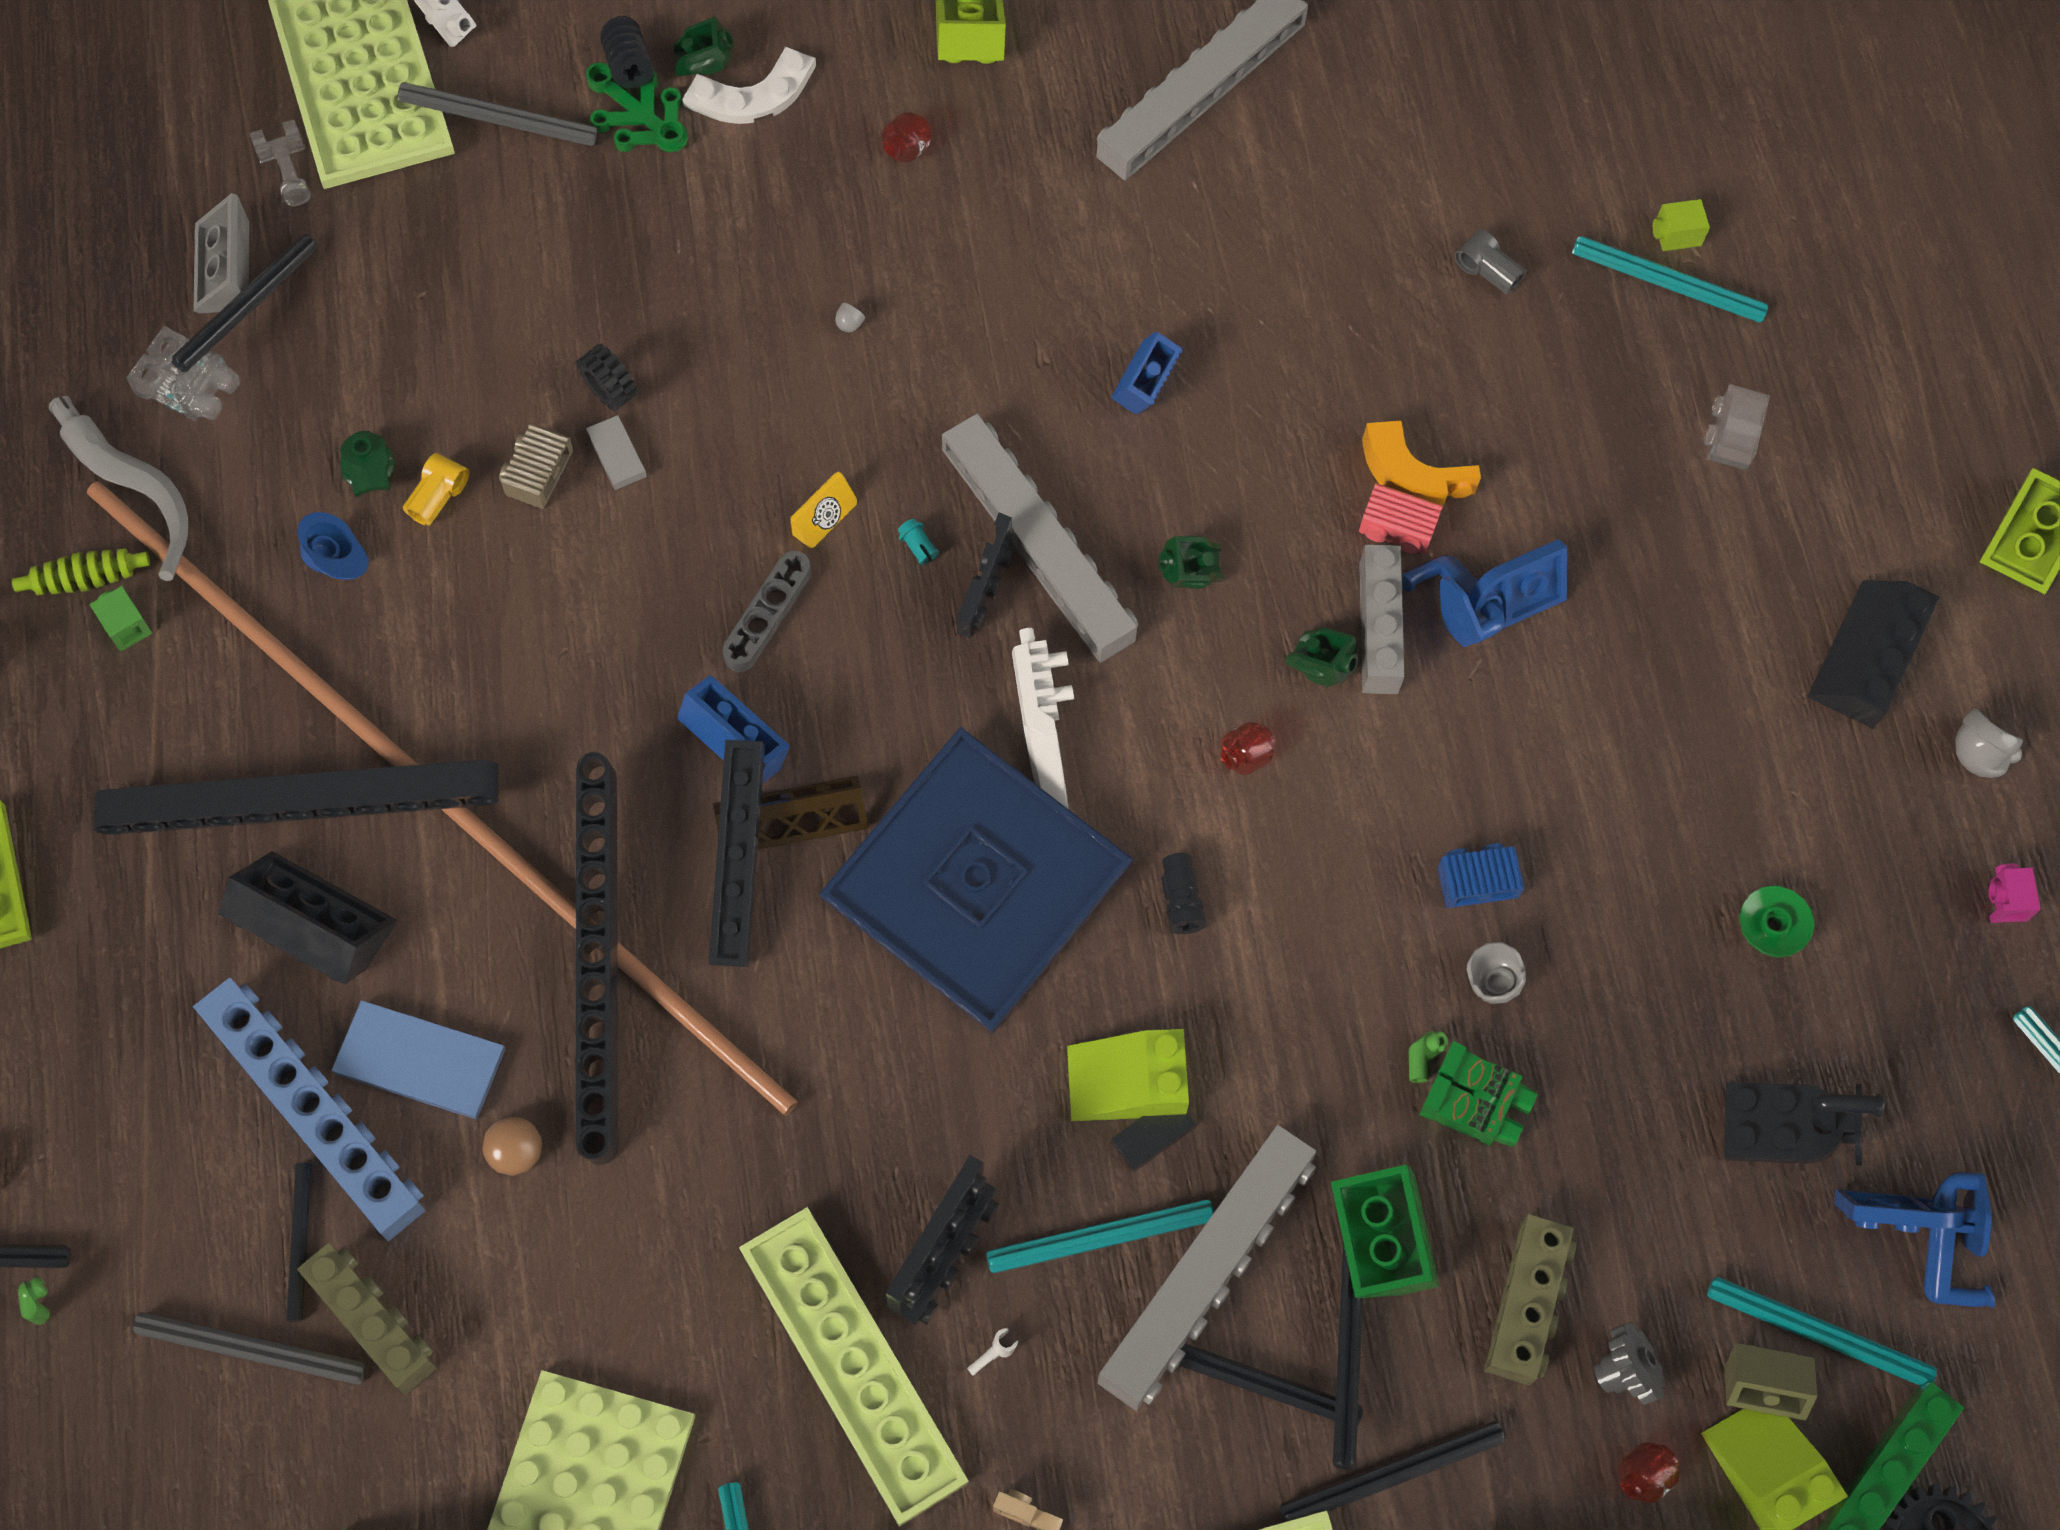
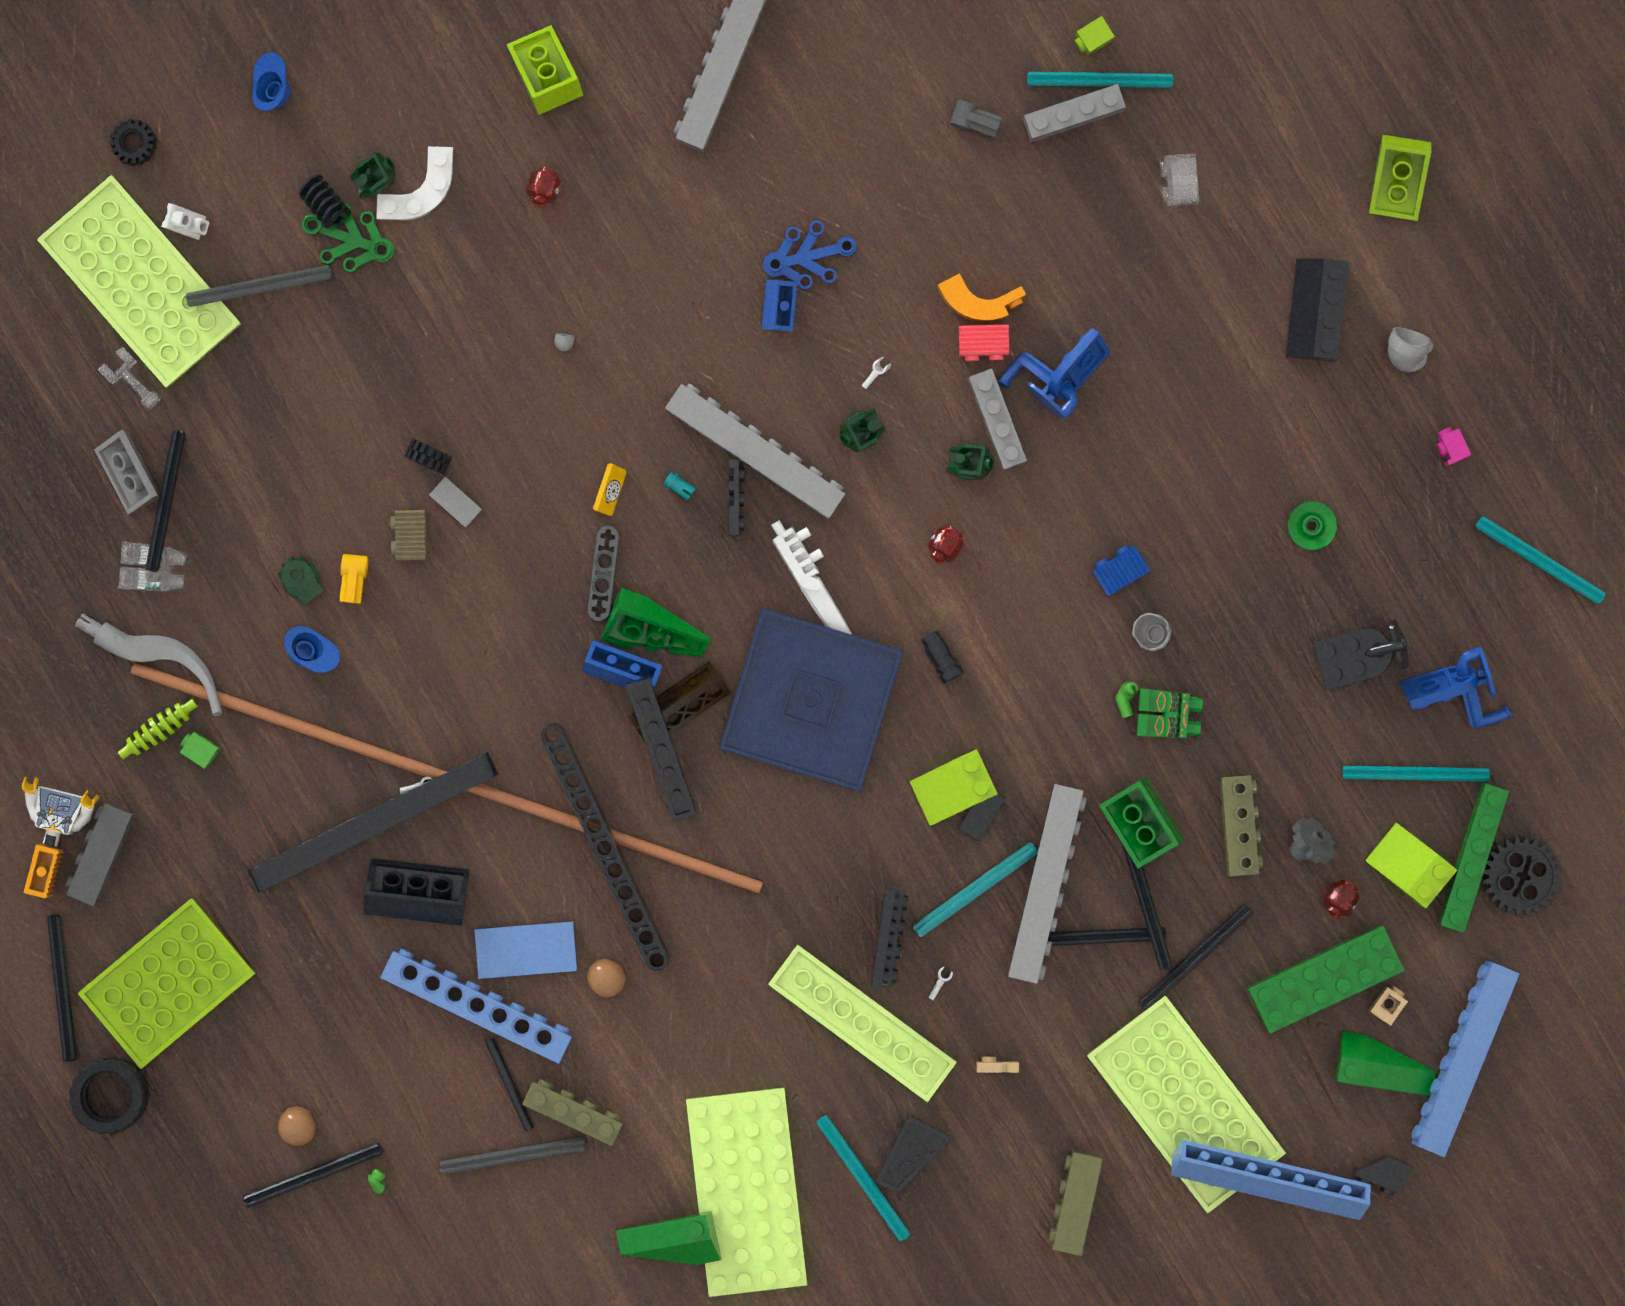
camera: 20 degrees left, 20 degrees up
(792, 693) = (643, 623): none -> green wedge
(1205, 337) = (805, 256): none -> blue plant
(1242, 503) = (877, 369): none -> white hand
(1623, 298) = (1074, 113): none -> light grey brick
(1770, 1381) = (1394, 817): olive brick -> none

